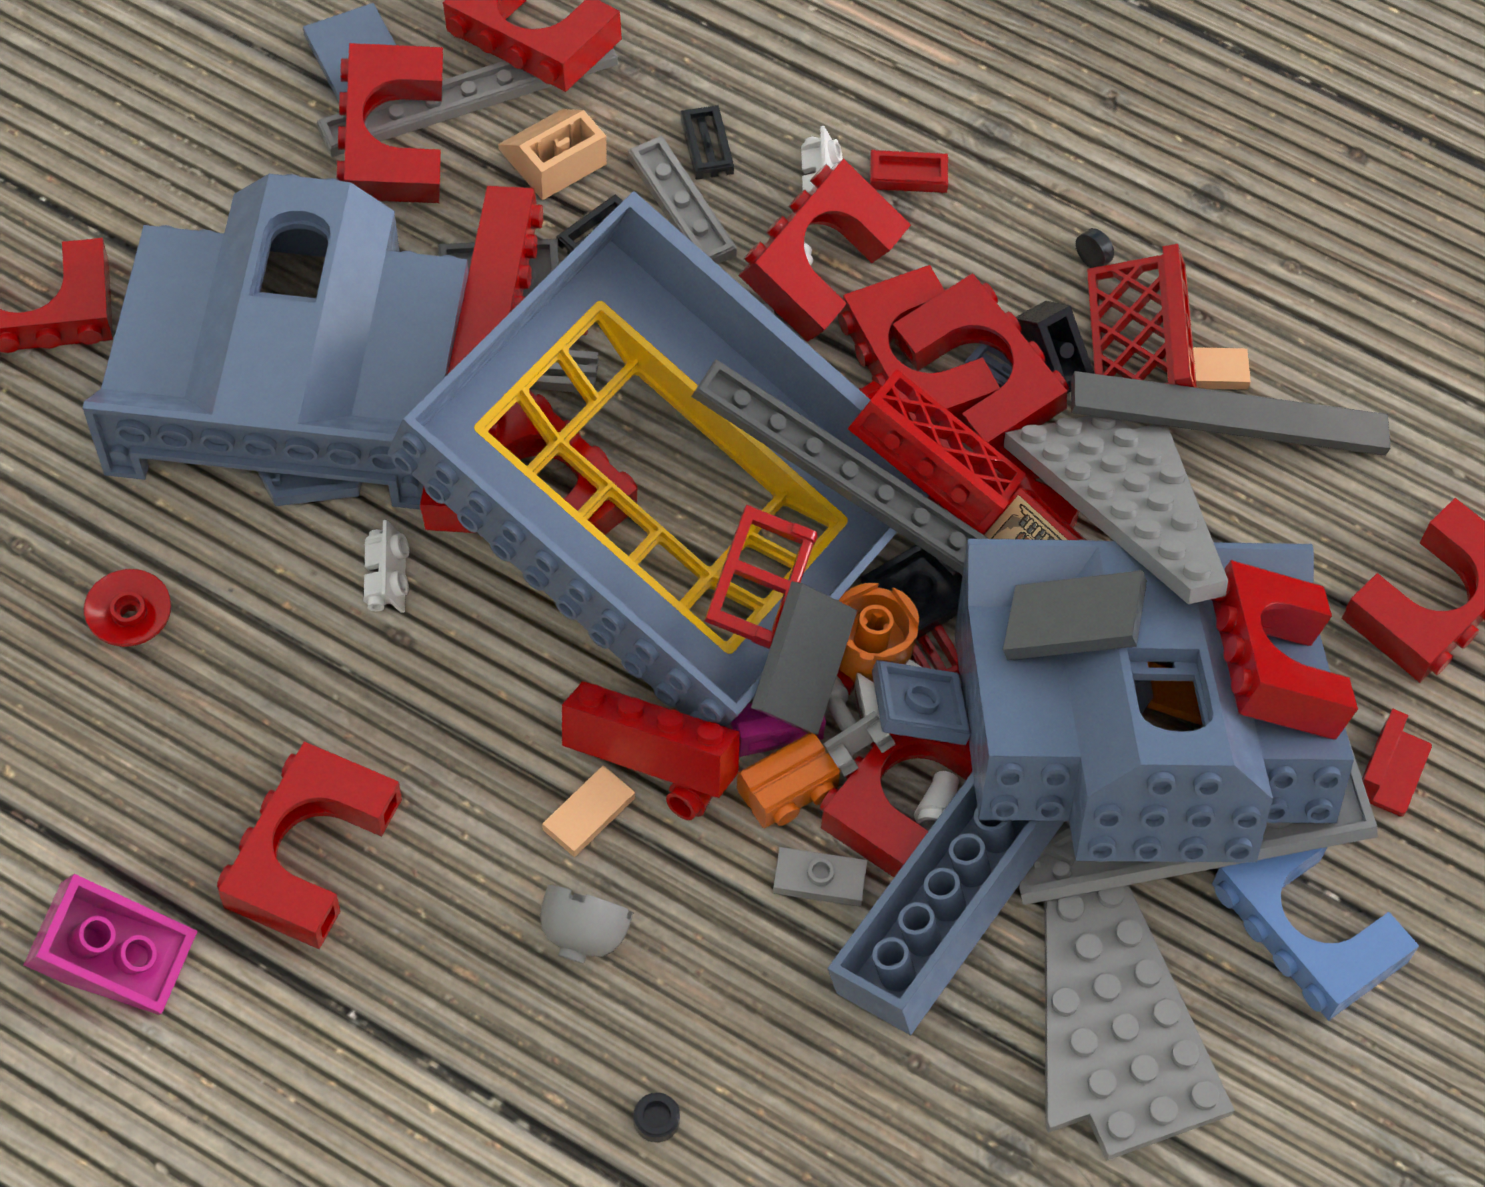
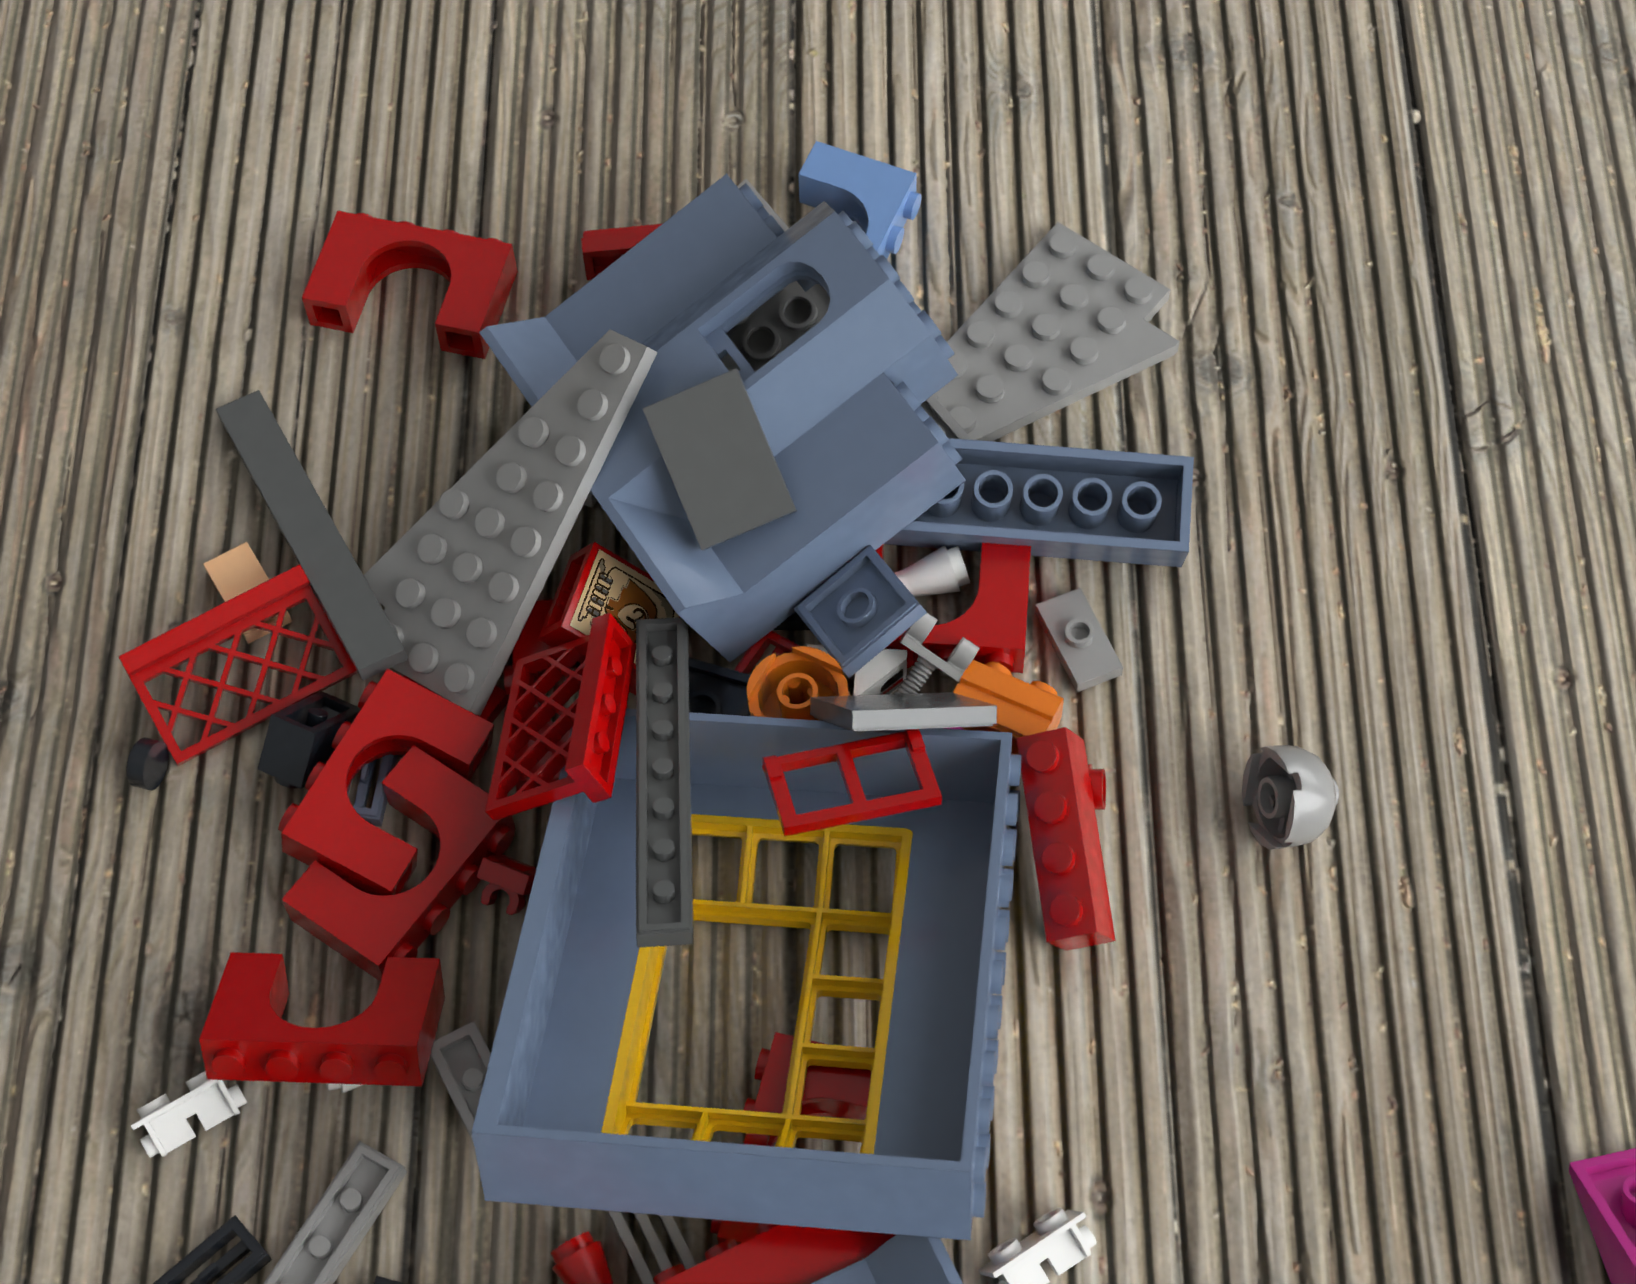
camera: 115 degrees left, 0 degrees up
(310, 787) = (1344, 1152): red arch -> none
(588, 811) = (1163, 878): light nougat tile -> none
(656, 1117) = (1411, 644): black tile -> none
(909, 171) = (130, 1021): red tile -> none
(1261, 676) = (698, 261): red arch -> none

